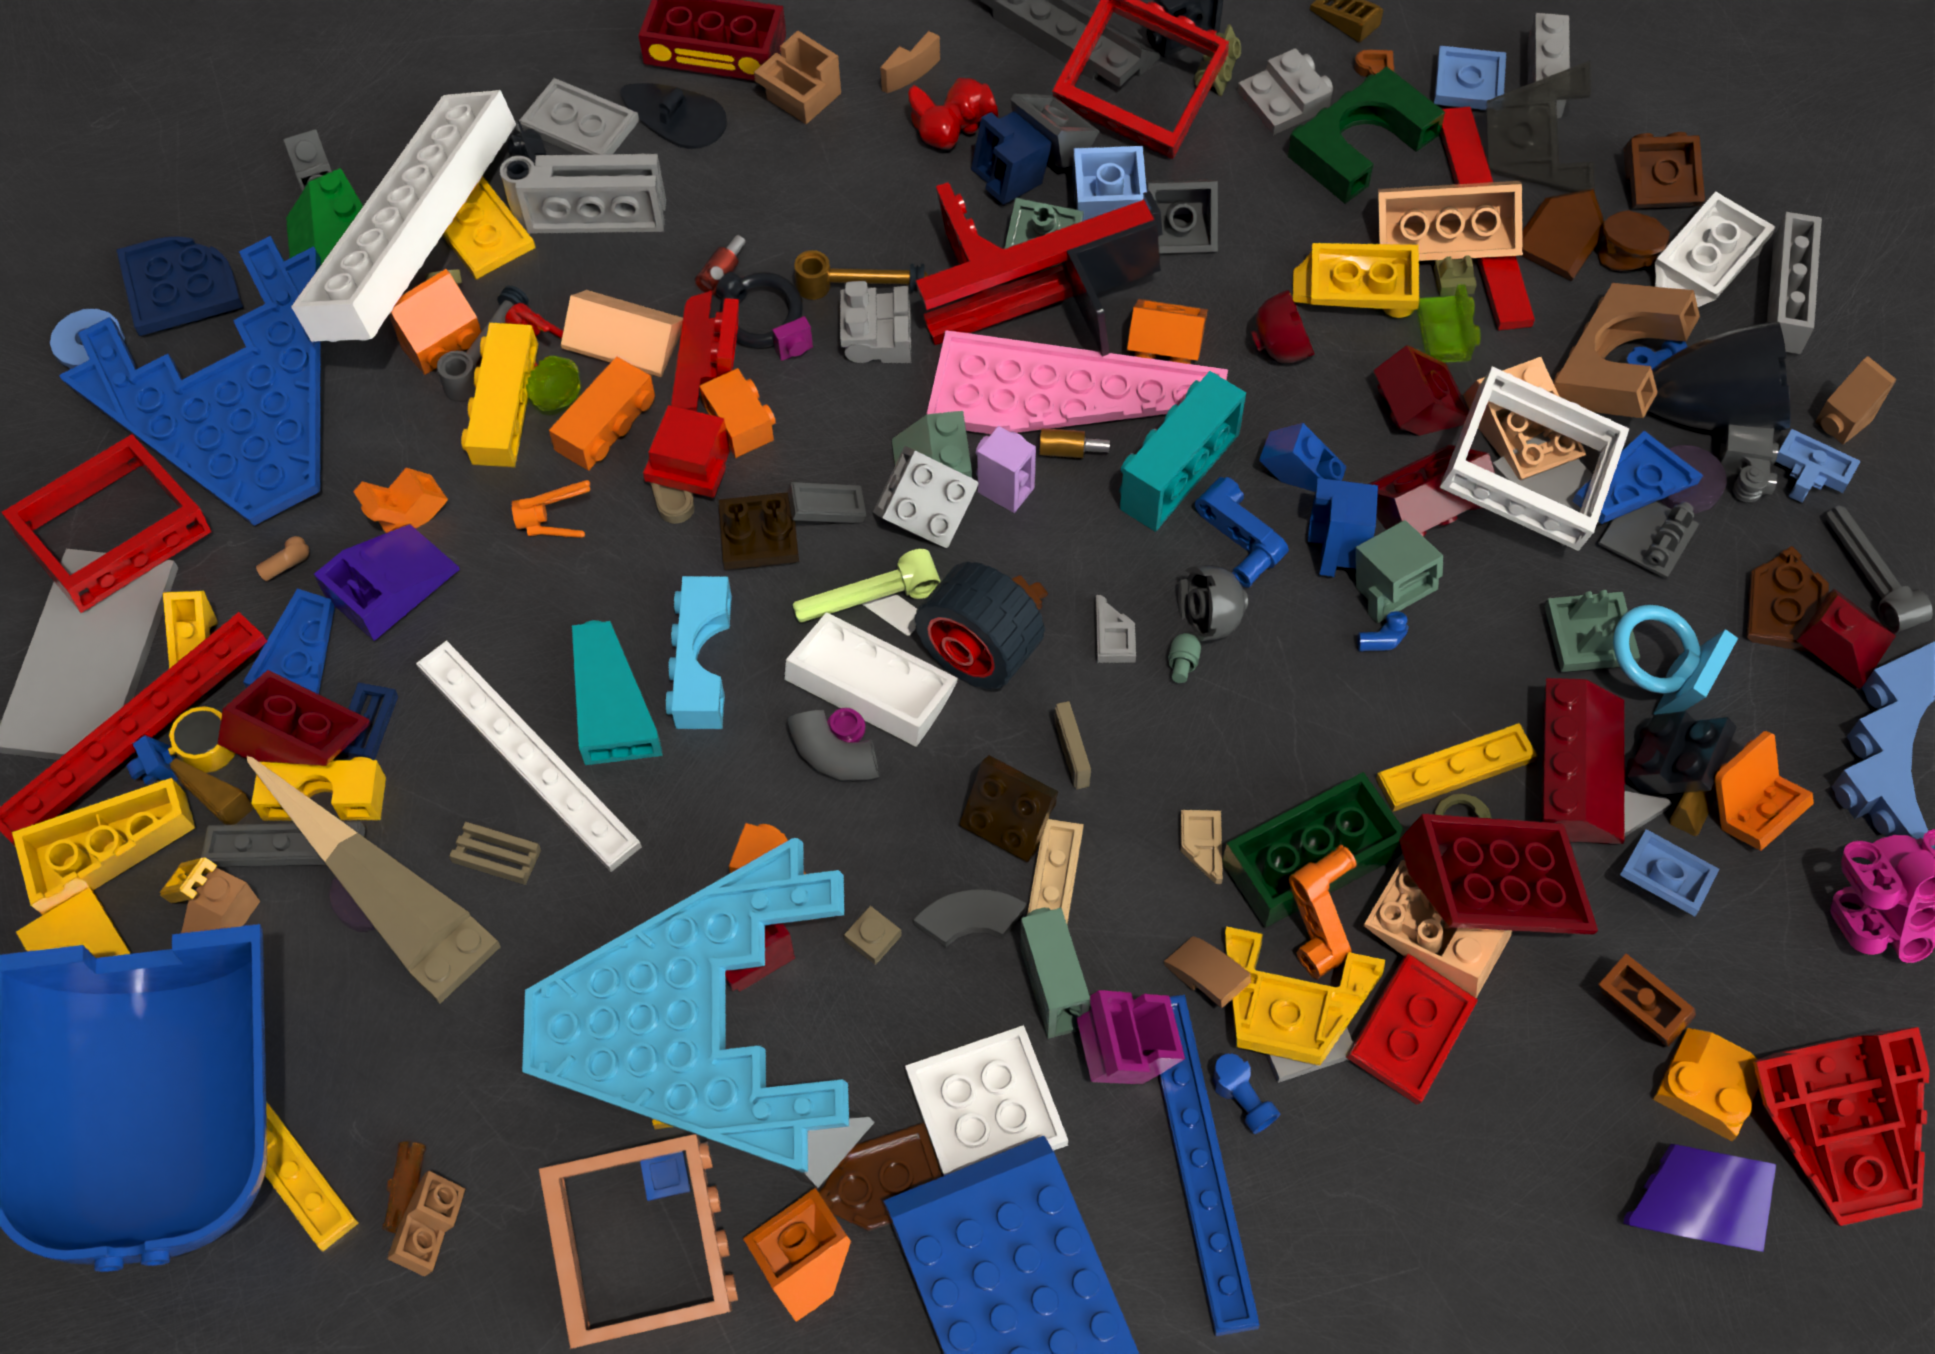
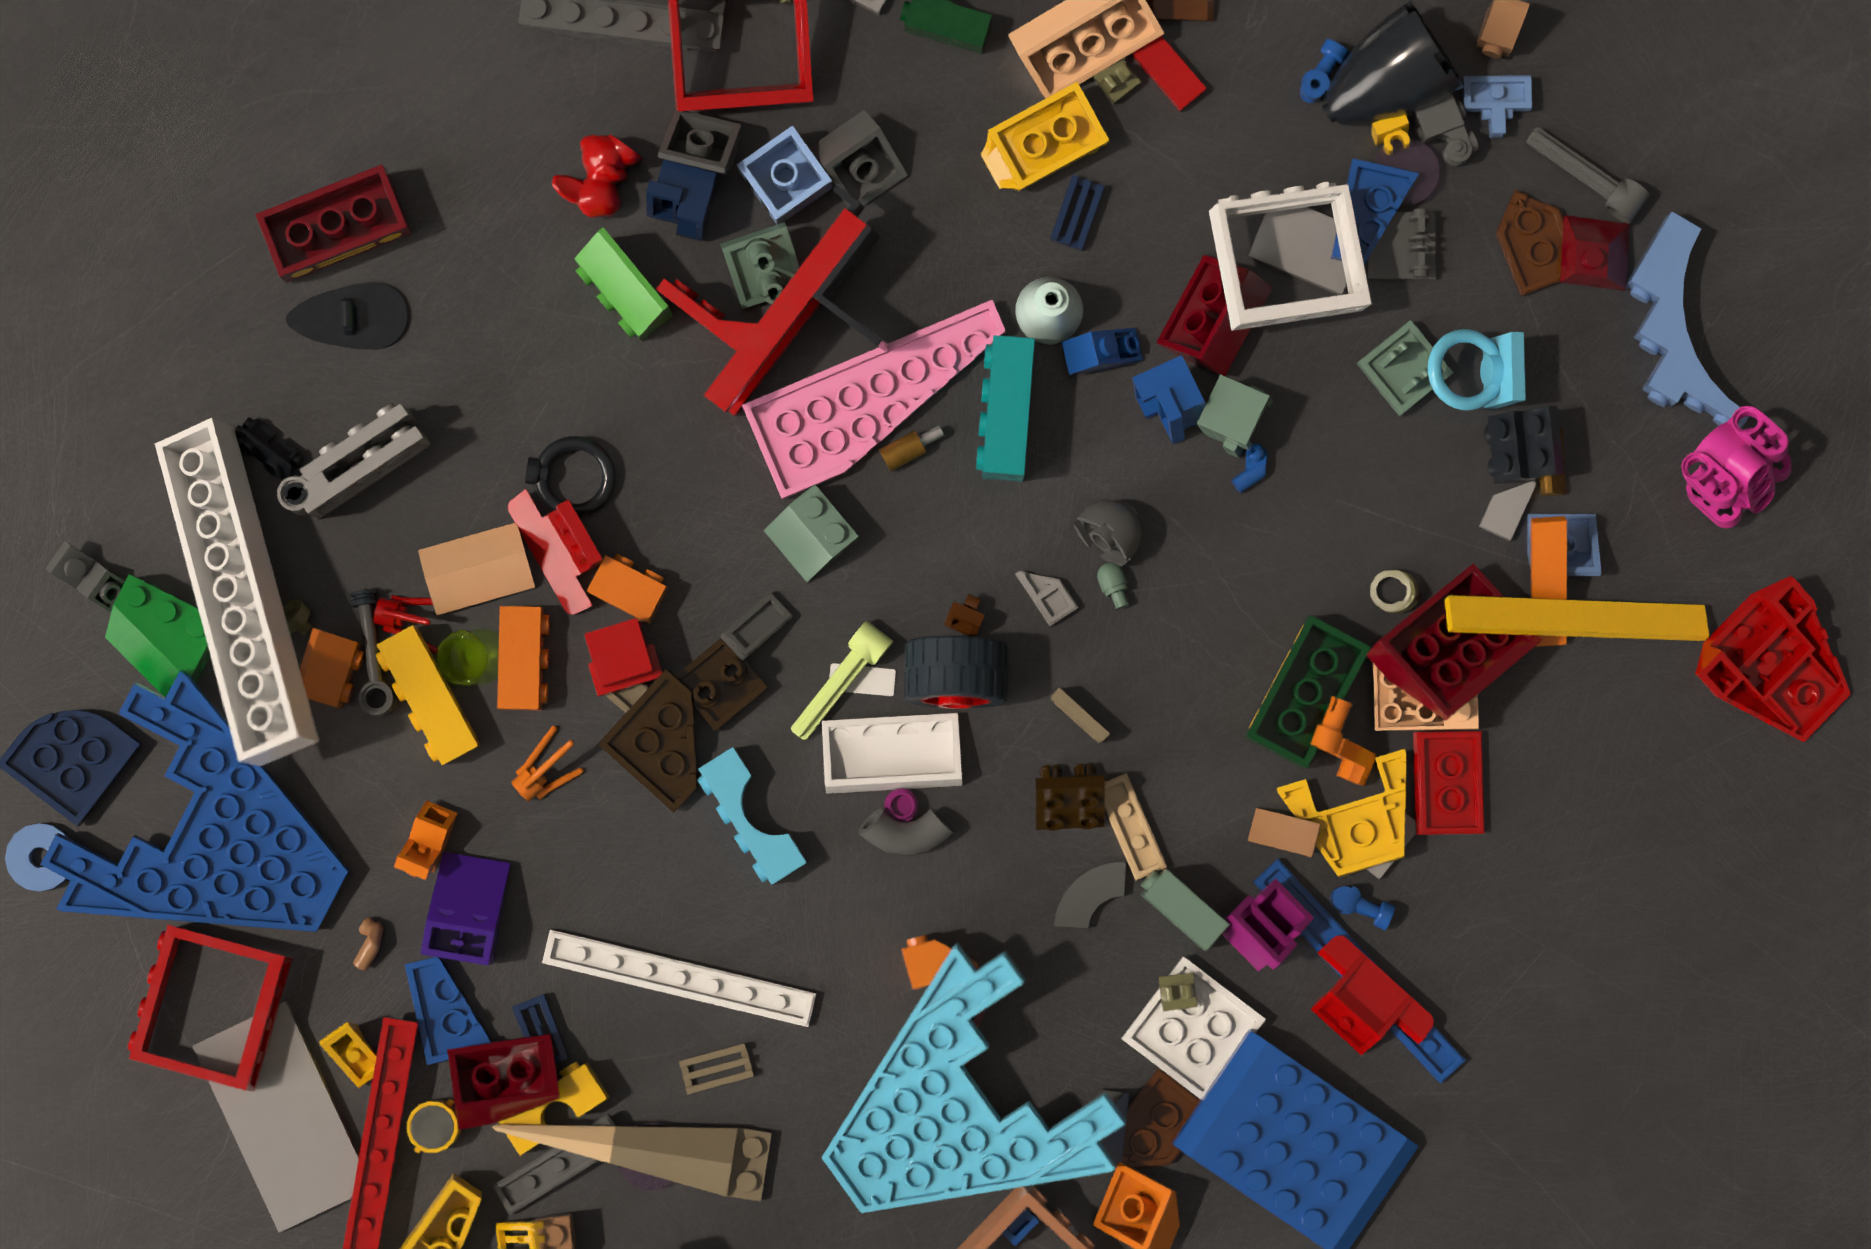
camera: 35 degrees left, 25 degrees up
(152, 761) = (413, 1167): blue tile -> none
(221, 798) = (482, 1162): pearl gold slope -> none
(486, 232) = (293, 544): yellow tile -> none
(579, 120) = (276, 380): light grey tile -> none
(608, 701) = (712, 900): teal slope -> none
(667, 539) = (659, 740): none -> dark brown plate
(718, 265) = (510, 455): clear red piece -> none
(792, 338) = (624, 491): magenta plate -> none
(801, 78) = (444, 224): medium nougat plate -> none
(815, 275) = (679, 365): pearl gold piece -> none
(872, 935) = (1031, 954): dark tan plate -> none
(875, 324) = (678, 451): light grey hips -> none
(908, 66) = (521, 148): medium nougat slope -> none
(911, 192) = (621, 286): none -> bright green slope
(925, 497) = (831, 579): bracket -> none
(994, 1052) = (1177, 991): none -> olive tile
(1006, 468) = (879, 512): lavender brick -> none
(1167, 331) = (918, 287): orange slope -> none
(1188, 1189) = (1366, 1000): none -> red plate
(1203, 841) = (1218, 728): tan tile -> none
(1222, 510) = (1060, 432): blue beam -> none
(1276, 396) = (1048, 322): none -> light aqua cone
(1281, 330) = (1014, 234): dark red cylinder -> none
(1370, 337) = (1086, 186): none -> dark blue tile
(1420, 392) = (1158, 223): dark red slope -> none
(1449, 326) = (1140, 138): clear neon green bracket -> none
(1456, 767) = (1366, 549): yellow tile -> none
(1512, 431) = (1241, 175): light nougat slope -> none
(1583, 761) = (1458, 492): dark red slope -> none
(1622, 316) = (1276, 45): medium nougat arch -> none
(1636, 884) = (1549, 565): none -> orange tile
(1647, 1000) = (1599, 663): dark orange brick -> none
(1649, 937) = (1576, 618): none -> yellow tile
(1694, 431) = (1390, 129): none -> yellow tile
(1707, 1198) = (1709, 784): dark purple slope -> none
(1710, 1082) = (1669, 691): light orange slope -> none
(1754, 798) = (1598, 443): orange bracket -> none

